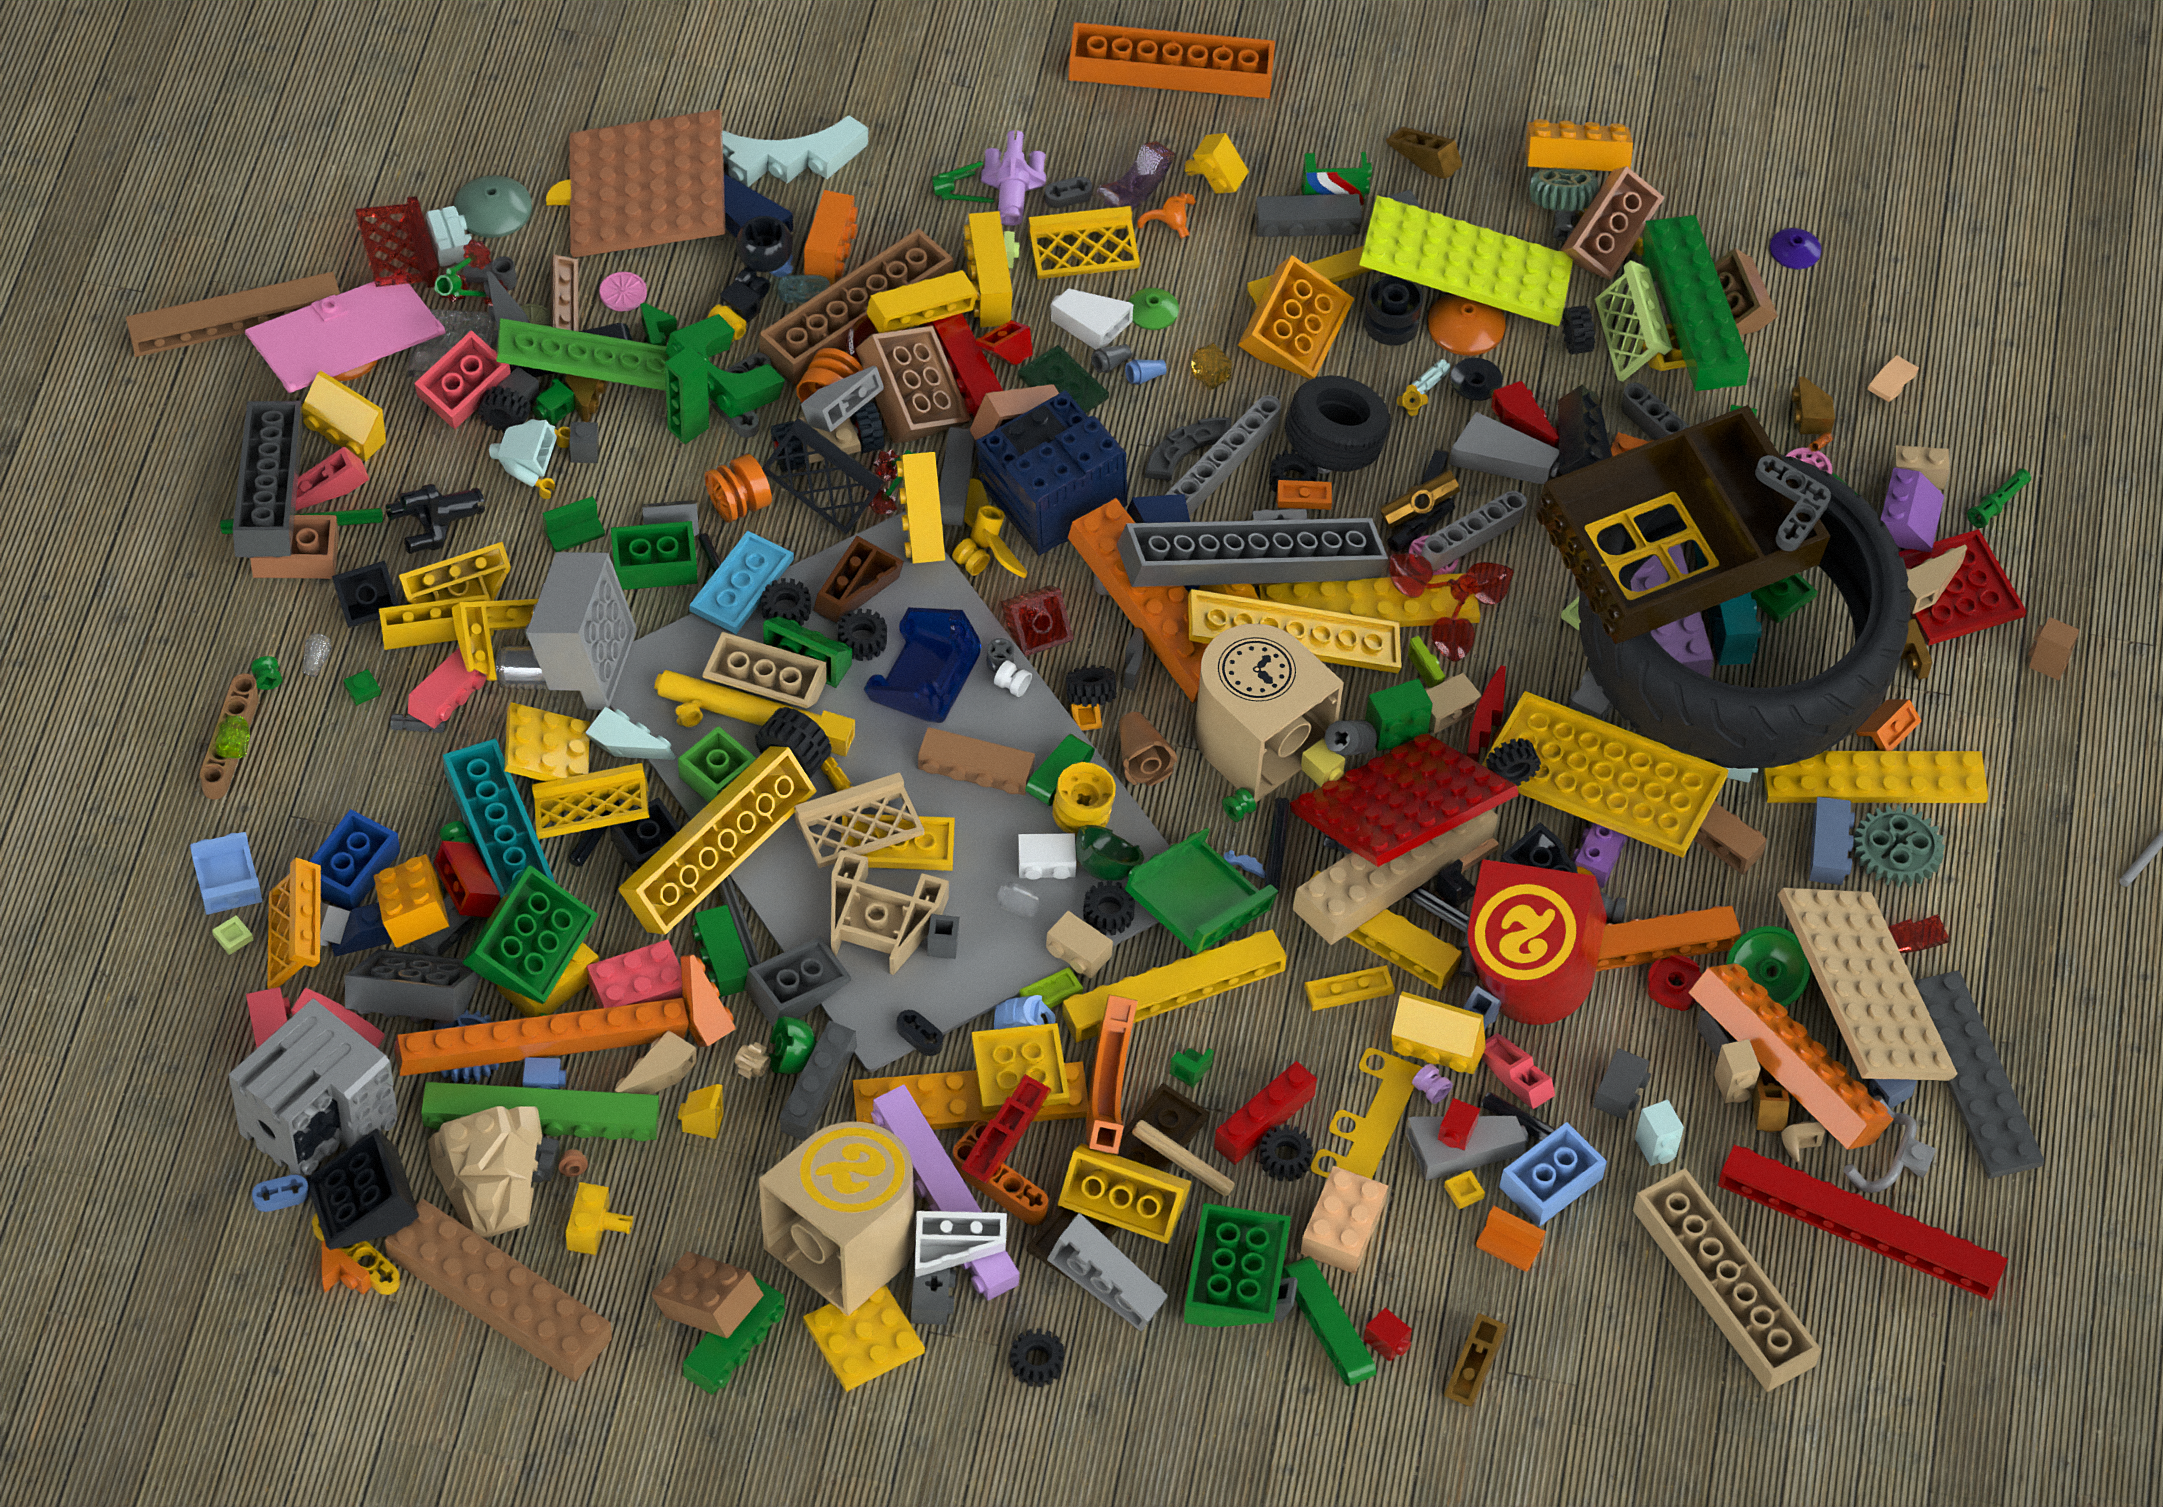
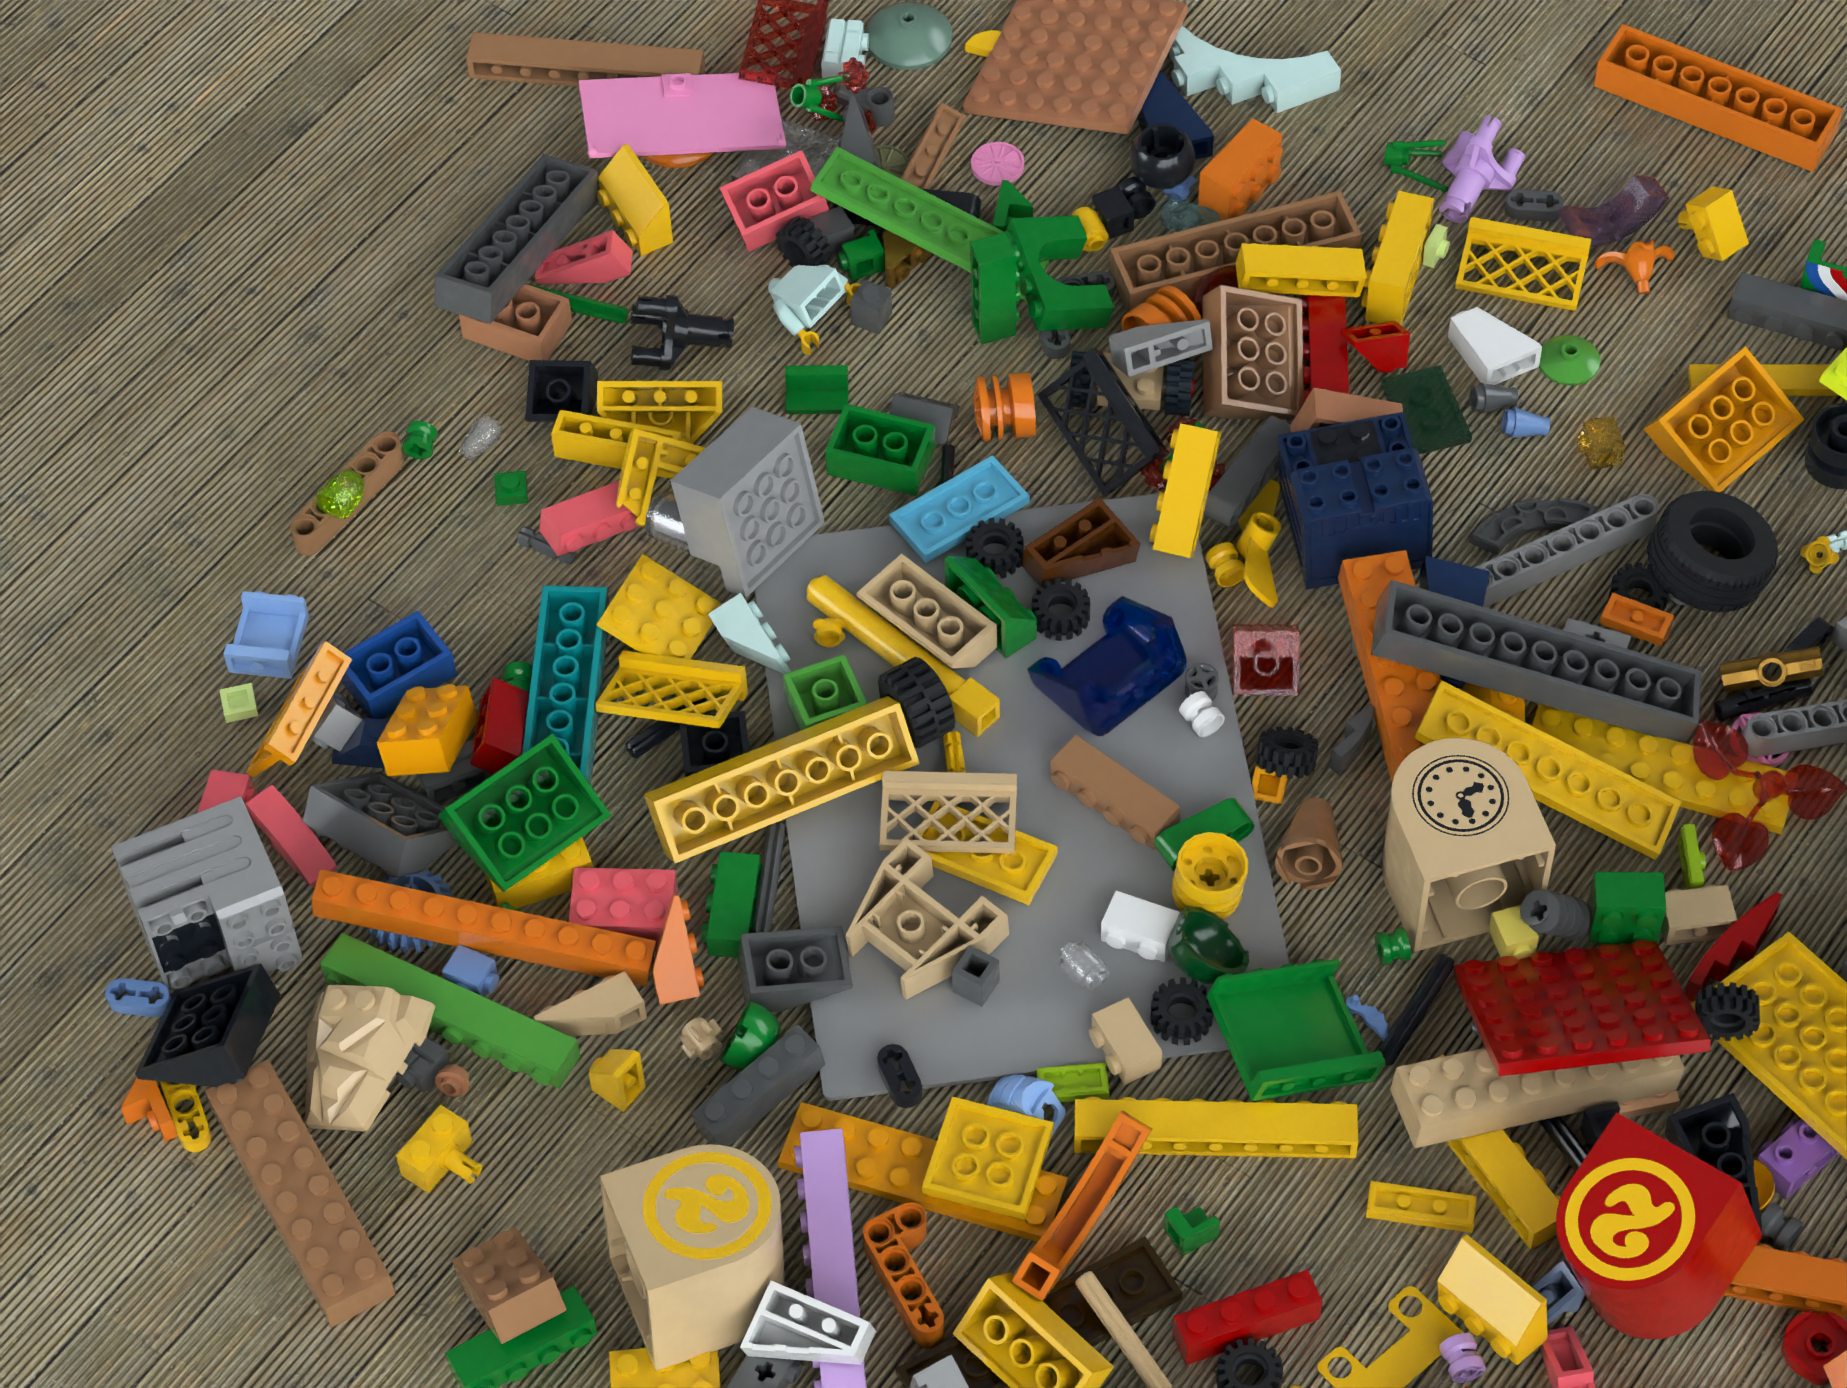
camera: 30 degrees right, 0 degrees up
(1006, 1129) = (932, 1224): red slope -> none

